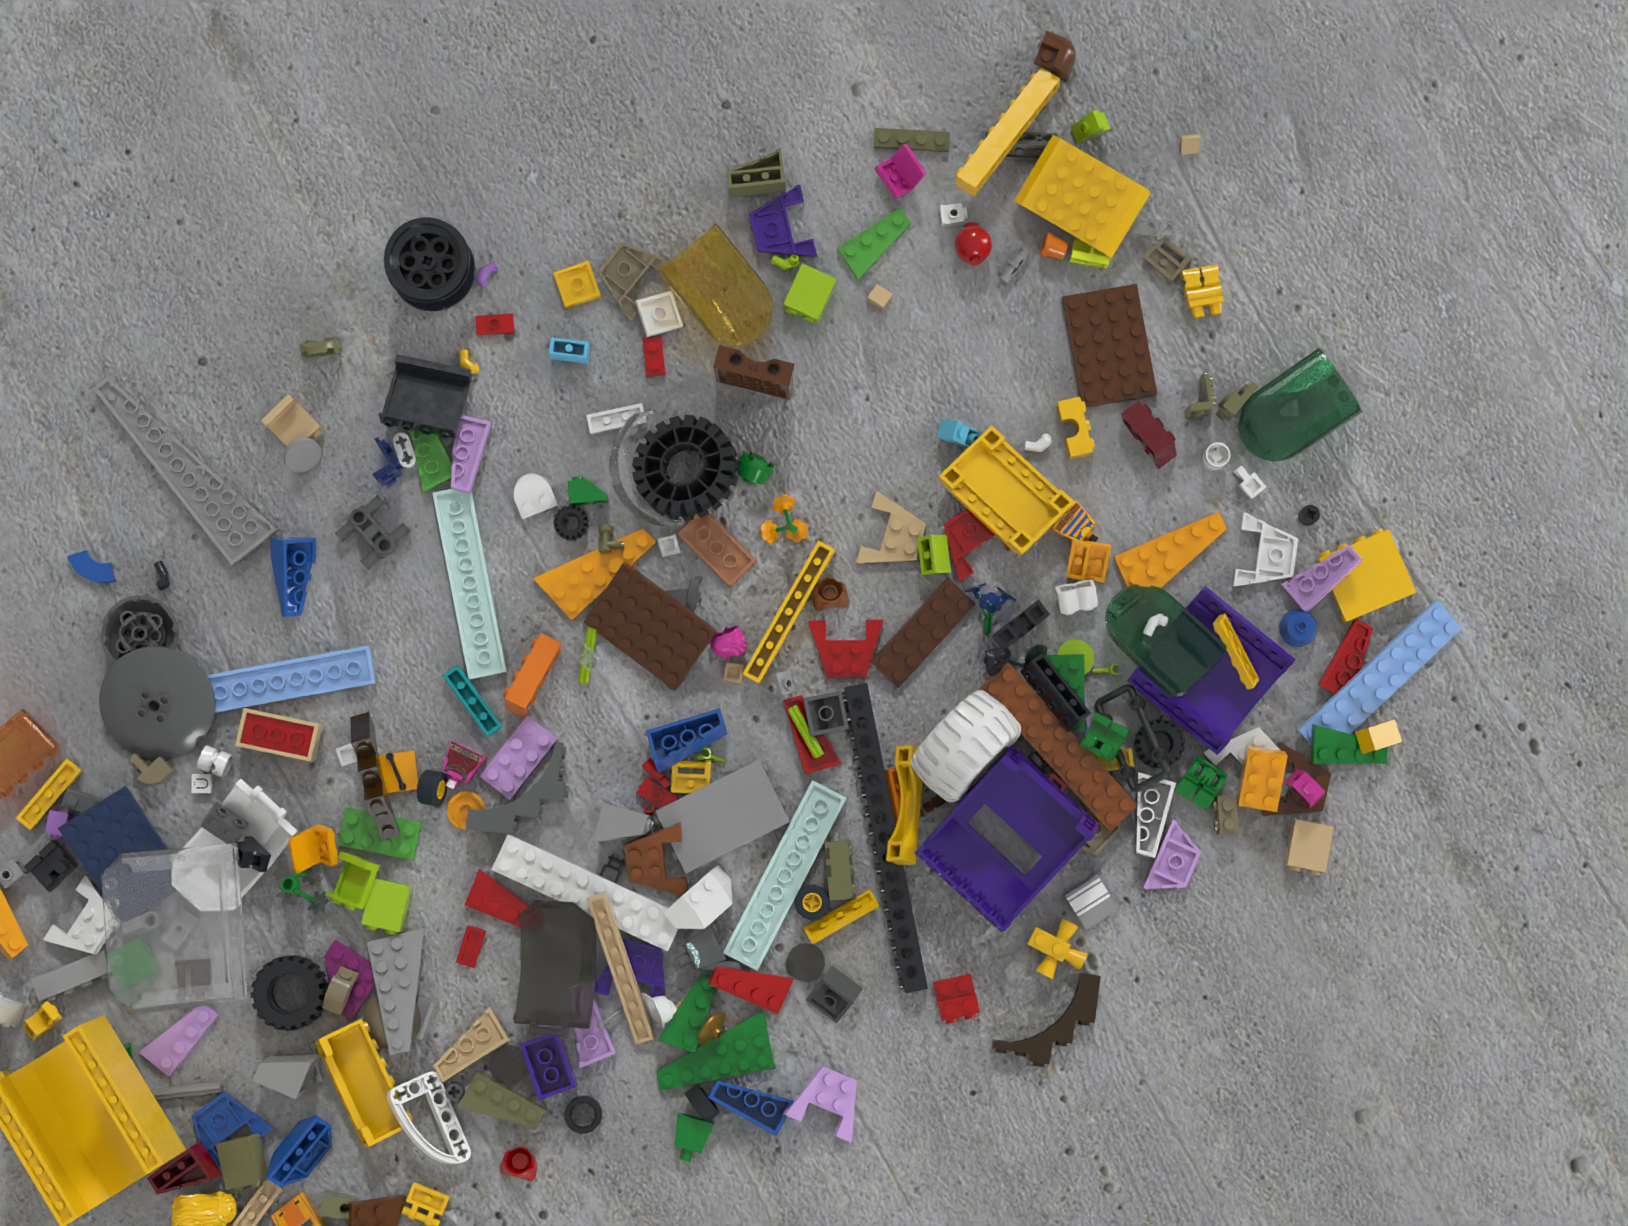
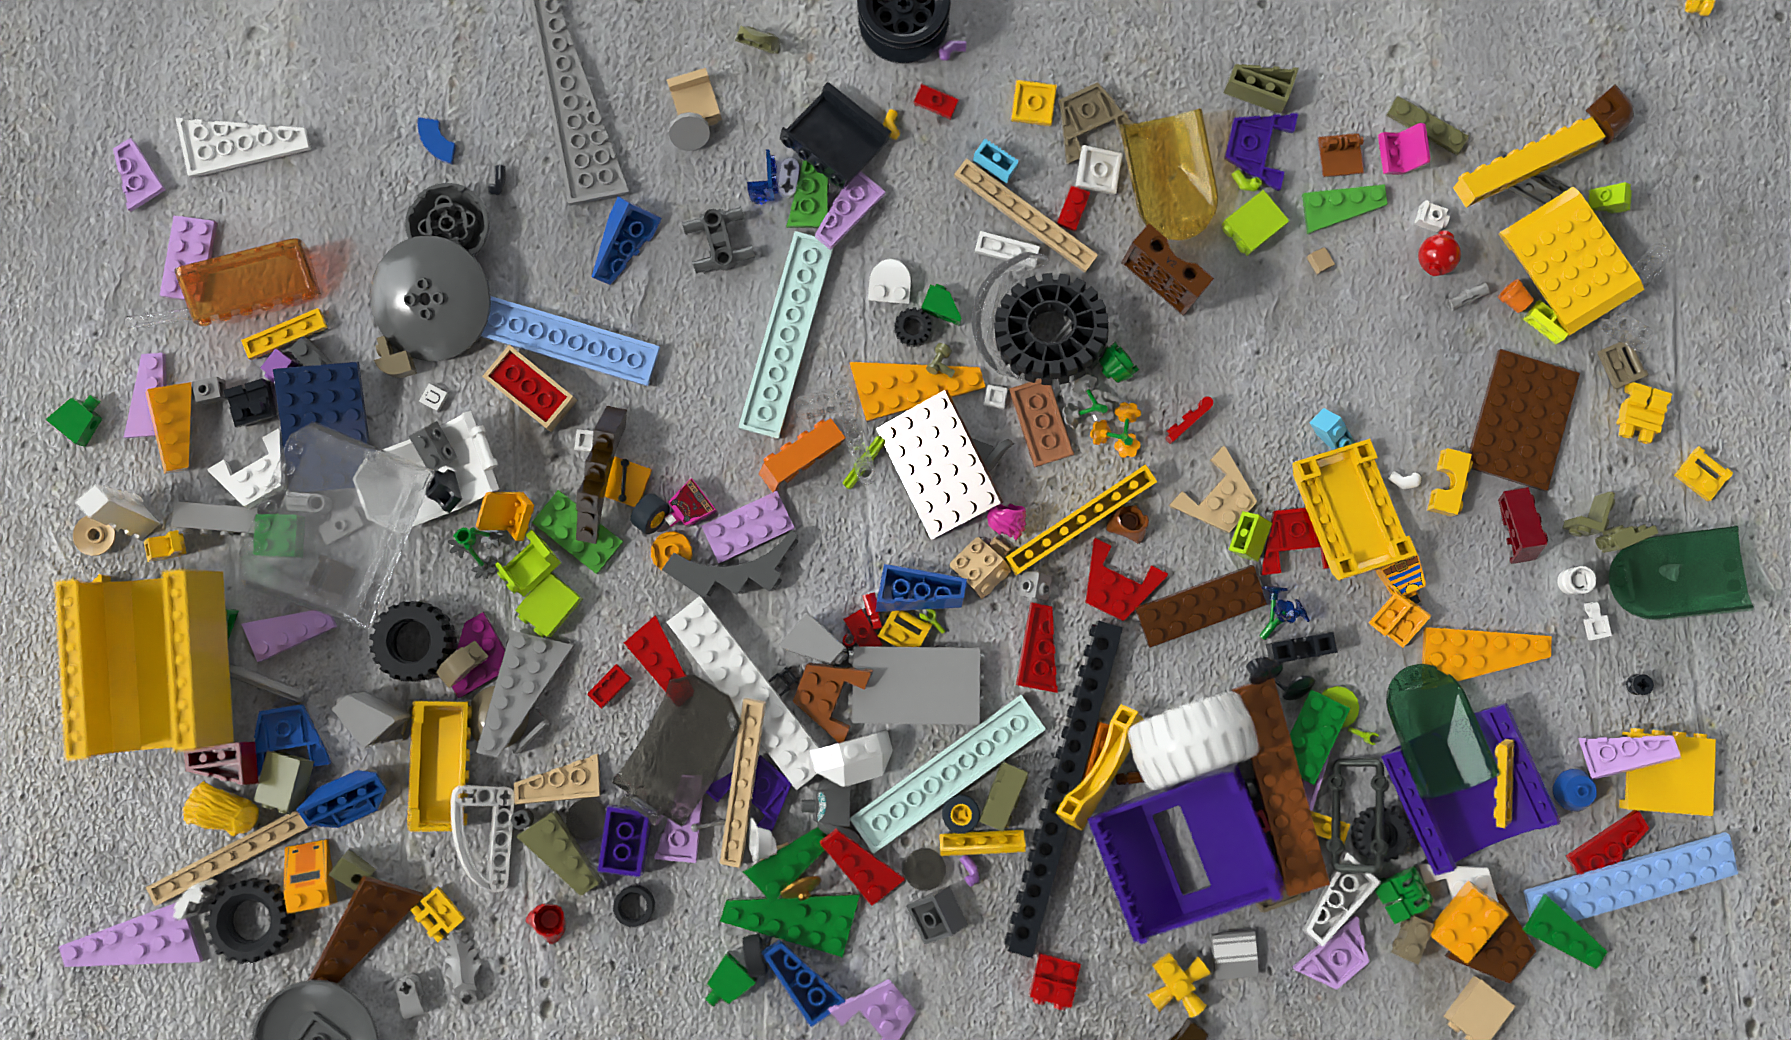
camera: 25 degrees right, 0 degrees up
(213, 761) = (459, 385): white wheel -> none
(472, 701) = (731, 450): teal brick -> none
(617, 382) = (1025, 215): none -> tan plate
(727, 693) = (980, 567): none -> tan bracket
(759, 513) = (1099, 409): none -> light grey plant
(803, 728) = (1038, 644): lime axle -> none
(826, 713) = (1068, 637): dark grey slope -> none
(836, 483) = (1189, 418): none -> red plate
(844, 942) = (972, 868): none -> medium lavender arm
(852, 200) = (1341, 154): none -> dark orange hinge
(1055, 692) = (1306, 732): black brick -> none
(1076, 597) = (1370, 648): white brick -> none
(1103, 738) = (1331, 793): green hips -> none
(1154, 621) = (1433, 712): white arm -> none
(1190, 144) = (1699, 264): tan slope -> none
(1274, 556) = (1585, 707): white wing -> none
(1277, 322) = (1700, 480): none -> yellow plate
(1304, 787) = (1506, 955): dark pink torso -> none
(1378, 736) = (1603, 939): yellow panel -> none

